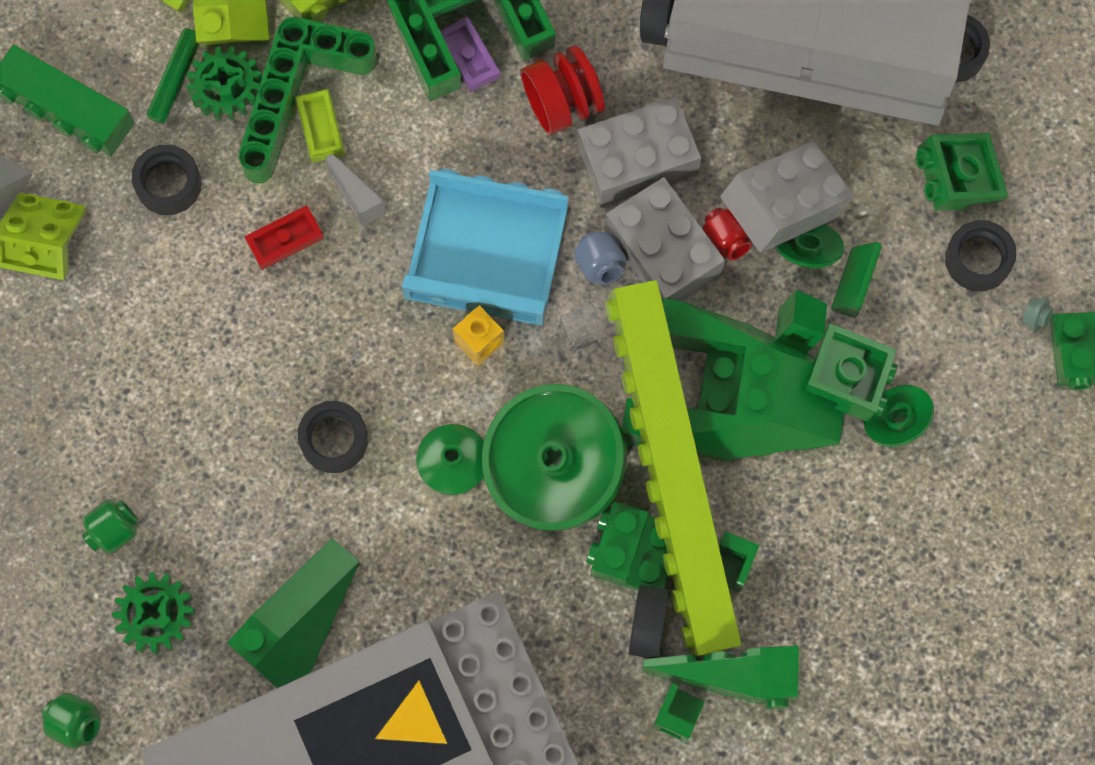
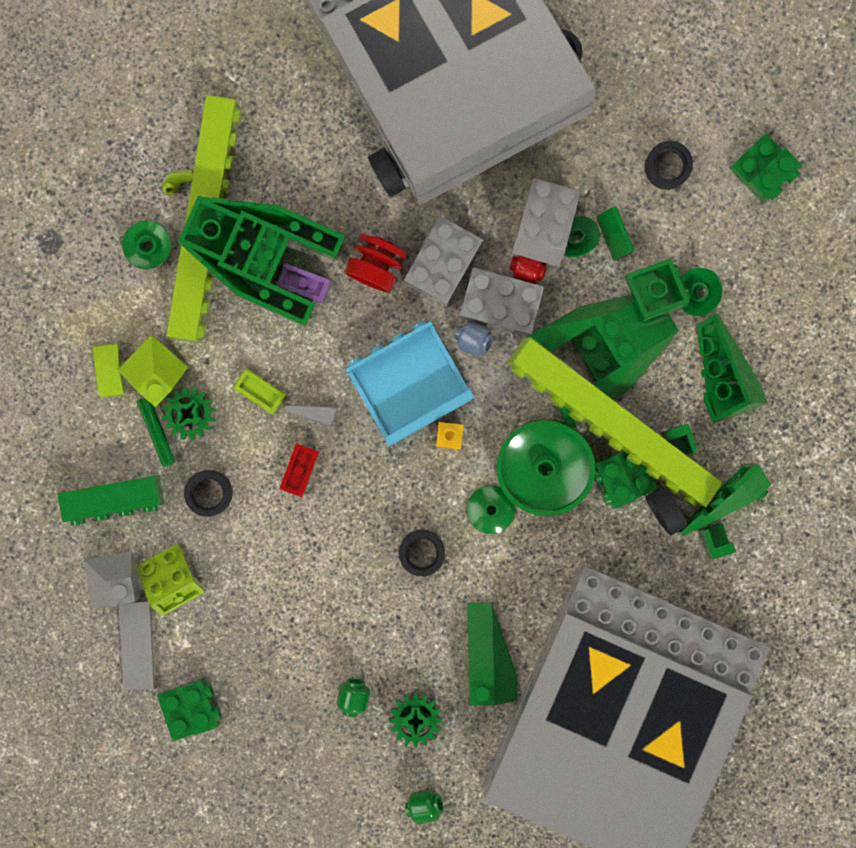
camera: 45 degrees left, 15 degrees up
(287, 84) = (223, 385): green beam -> none
(801, 322) = (607, 283): green panel -> none
(853, 543) = (728, 376): none -> green wedge
(960, 170) = (620, 125): green plate -> none
(1037, 313) = (724, 172): sand green plate -> none

